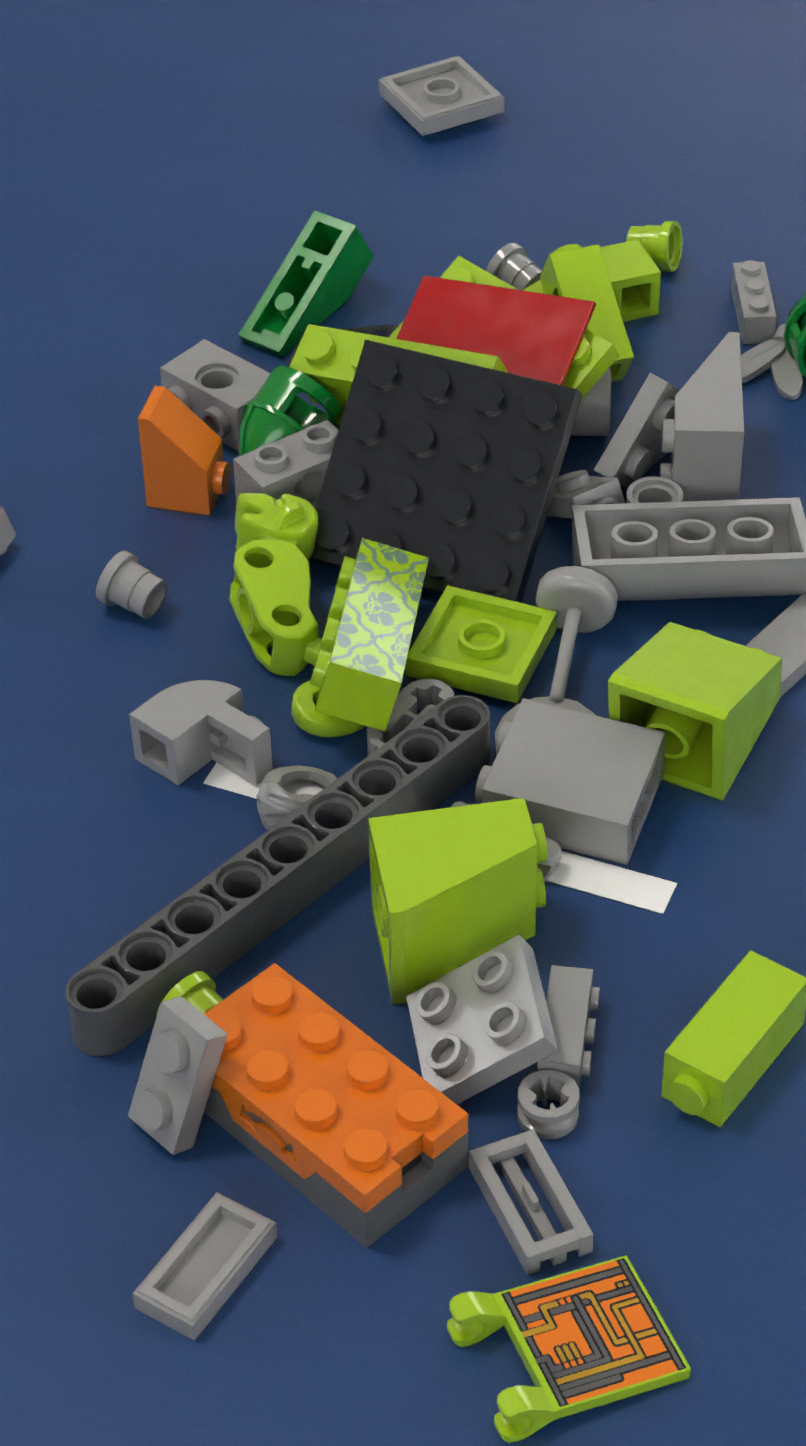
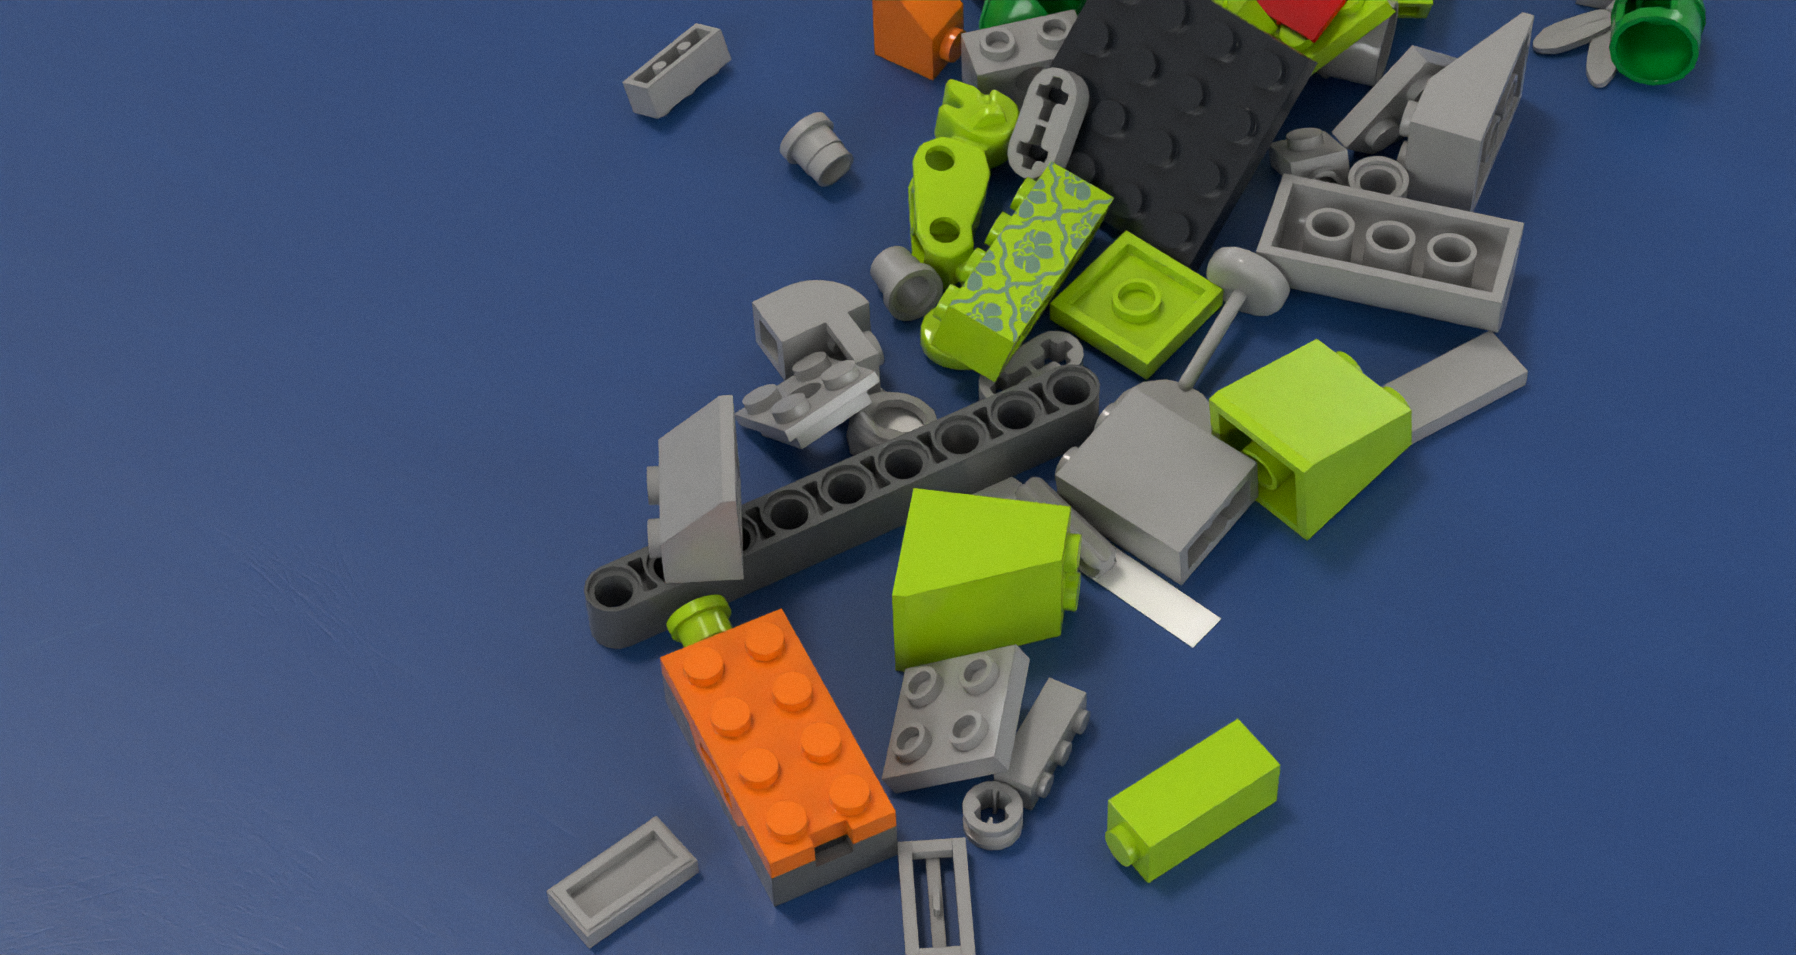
camera: 20 degrees right, 10 degrees up
(161, 877) = (698, 498): none -> light grey slope
(177, 1075) = (653, 695): light grey plate -> none
(216, 787) = (808, 402): none -> light grey piece
(262, 673) = (906, 284): none -> light grey piece
(332, 507) = (1048, 123): none -> light grey beam

